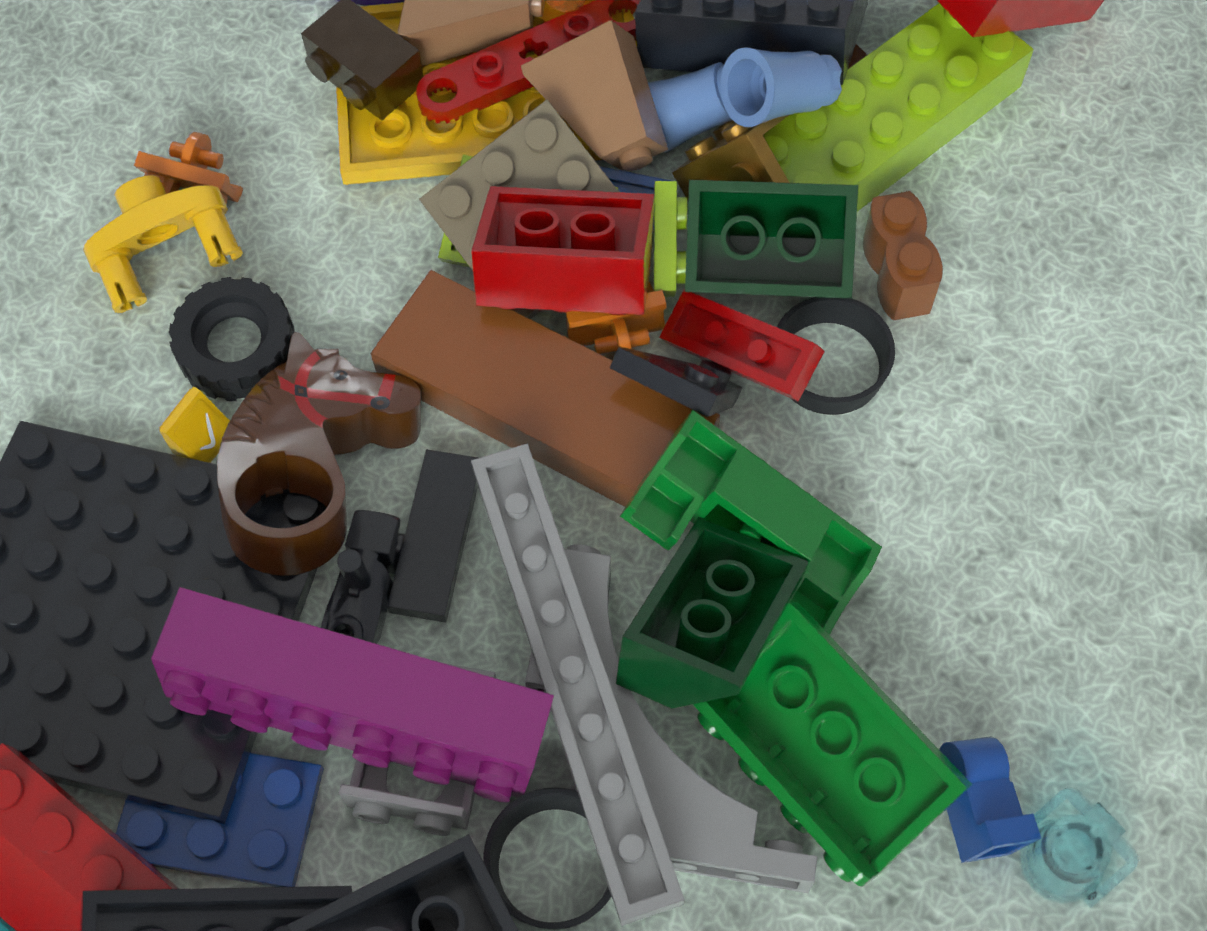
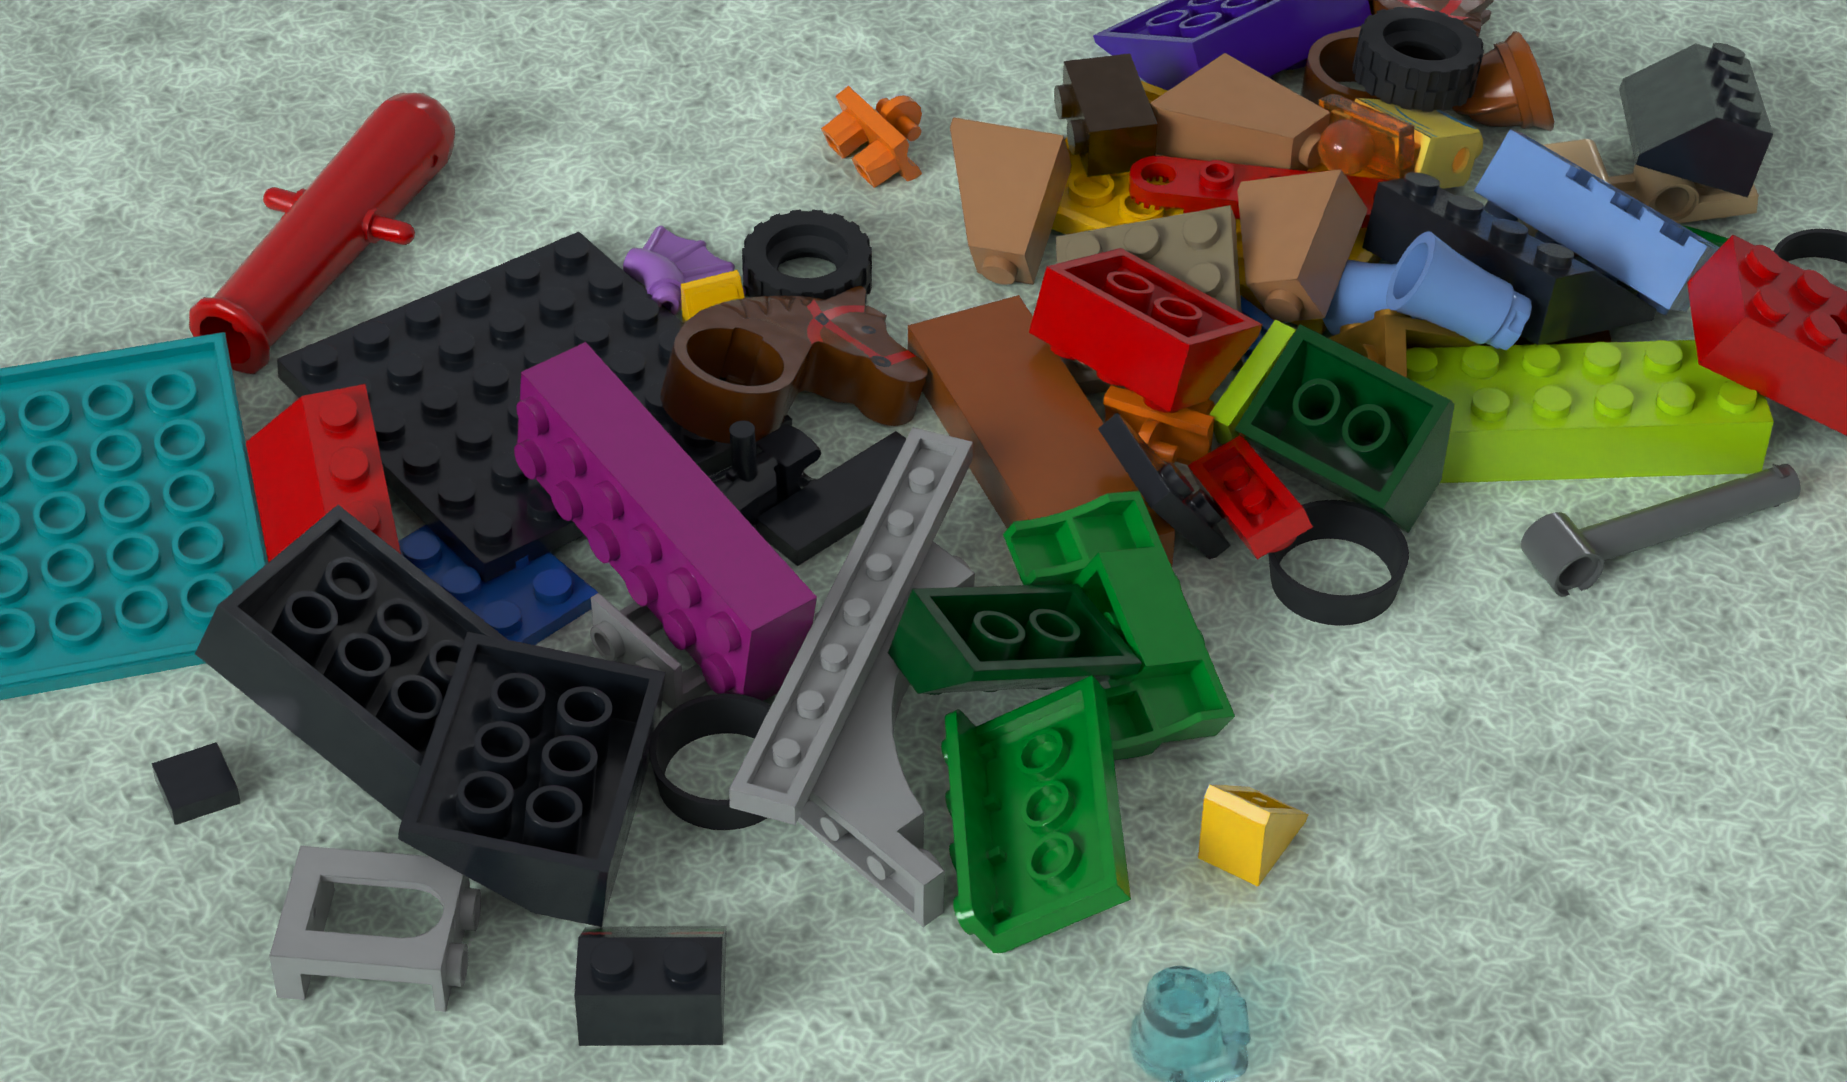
camera: 35 degrees right, 20 degrees down
(128, 403) = (669, 262): none -> medium lavender arm
(149, 219) = (810, 142): yellow connector -> none
(344, 179) = (1008, 195): none -> medium nougat slope
(902, 255) = (1480, 521): dark orange brick -> none
(968, 635) = (1246, 830): none -> yellow slope
(973, 240) = (1576, 556): none -> dark grey piece
(988, 814) = (1139, 941): blue leg -> none

